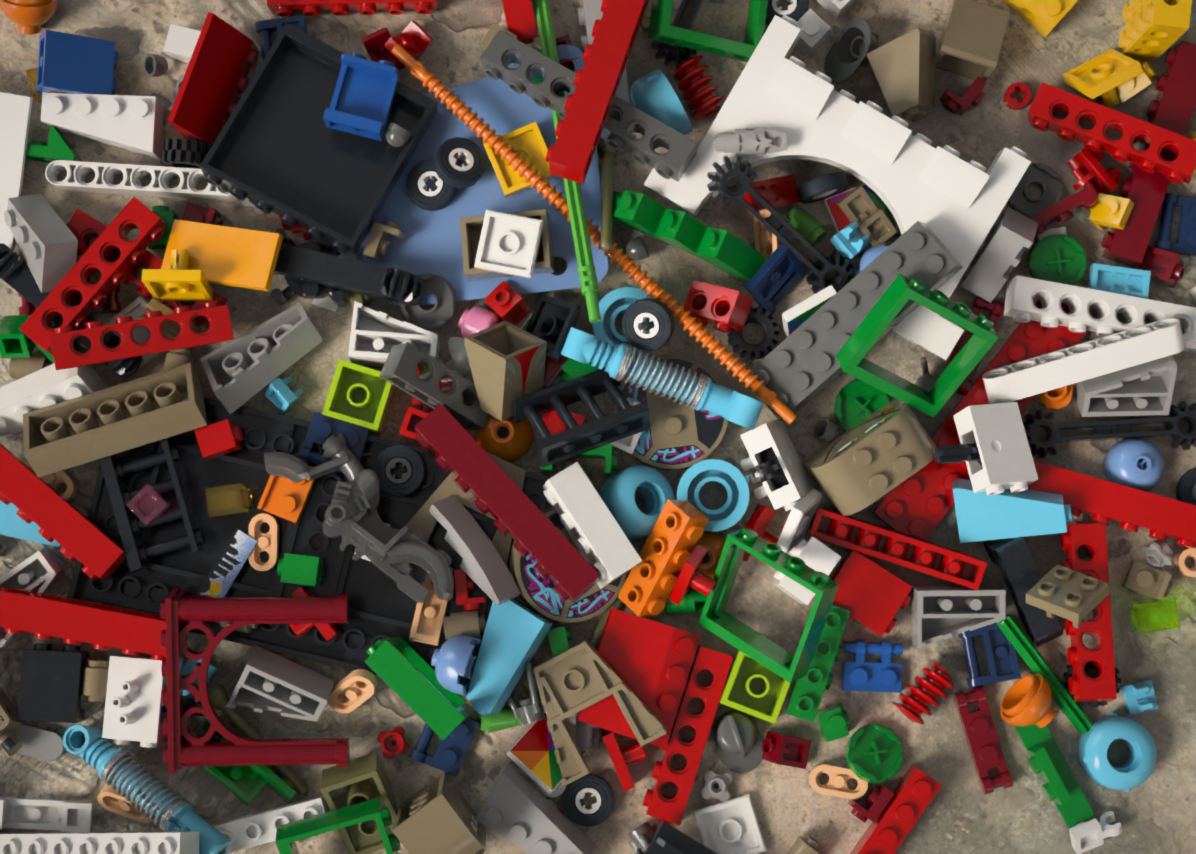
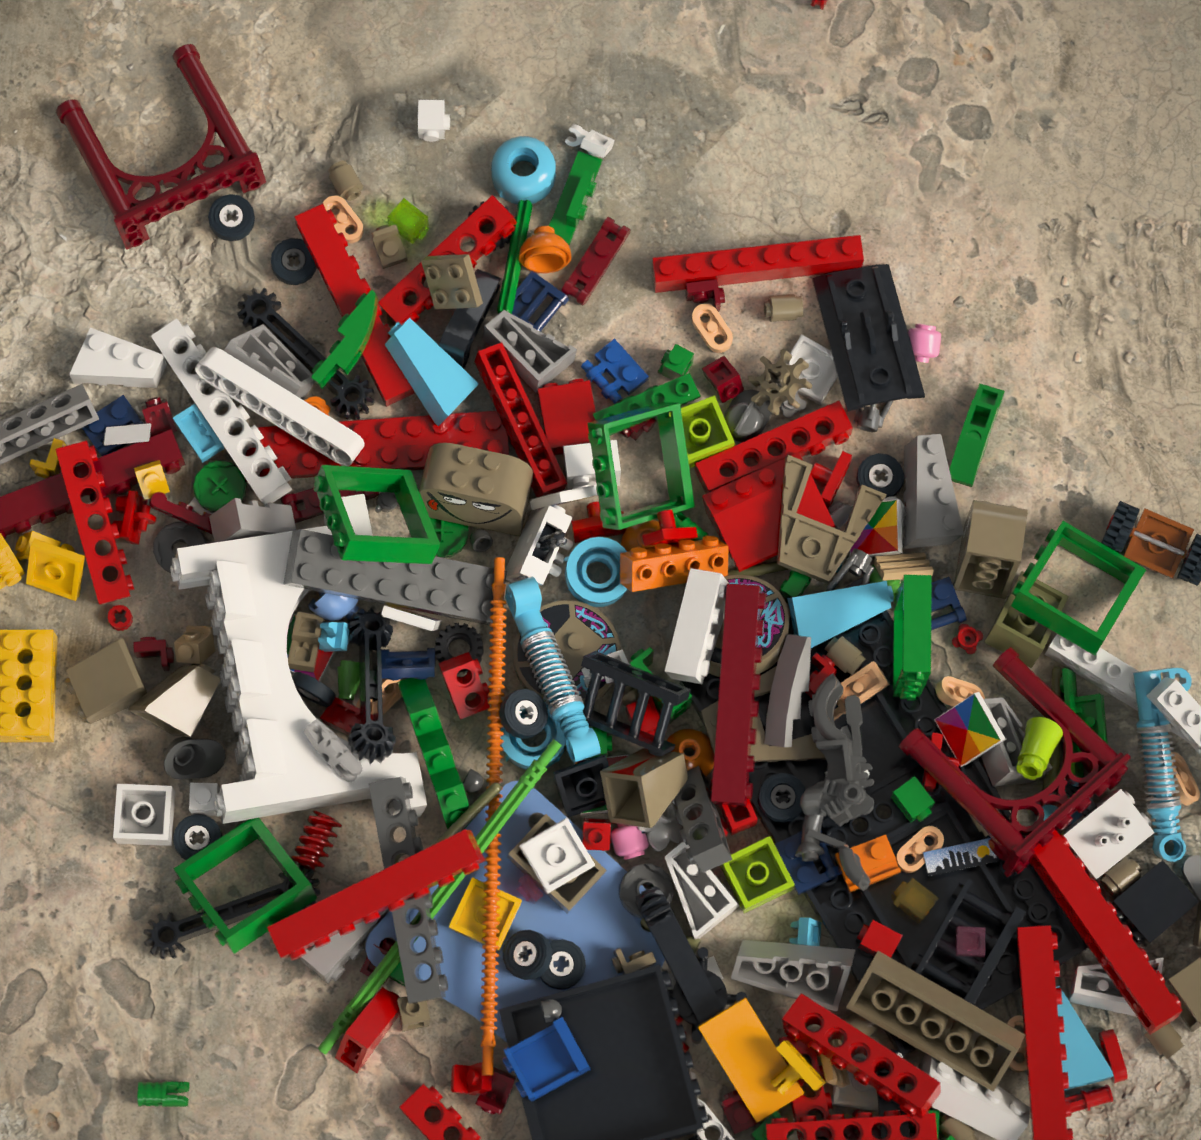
camera: 140 degrees left, 10 degrees down
(245, 705) = (1037, 747): none -> lime plant
(312, 667) = (969, 729): none -> tile
(456, 663) = (874, 635): medium blue cylinder -> none
(499, 746) = (895, 566): none -> tan tile
(507, 205) = (529, 889): none -> clear pink plate
(619, 497) = (659, 628): medium azure piece -> none
(658, 99) = (357, 850): medium azure piece -> none
(732, 797) = (788, 378): none -> dark tan gear
(874, 753) = (671, 320): green tile -> none
(925, 693) = (601, 321): red piece -> none
(941, 126) = (195, 644): none -> tan brick
(992, 447) = (397, 412): white piece -> none
(1092, 478) = (356, 332): none -> green slope
(1123, 463) = (317, 319): medium blue cylinder -> none
(1139, 697) = (472, 187): medium azure tile -> none
(1158, 554) = (364, 254): light grey plate -> none
(1168, 226) = (127, 434): none -> white sticker

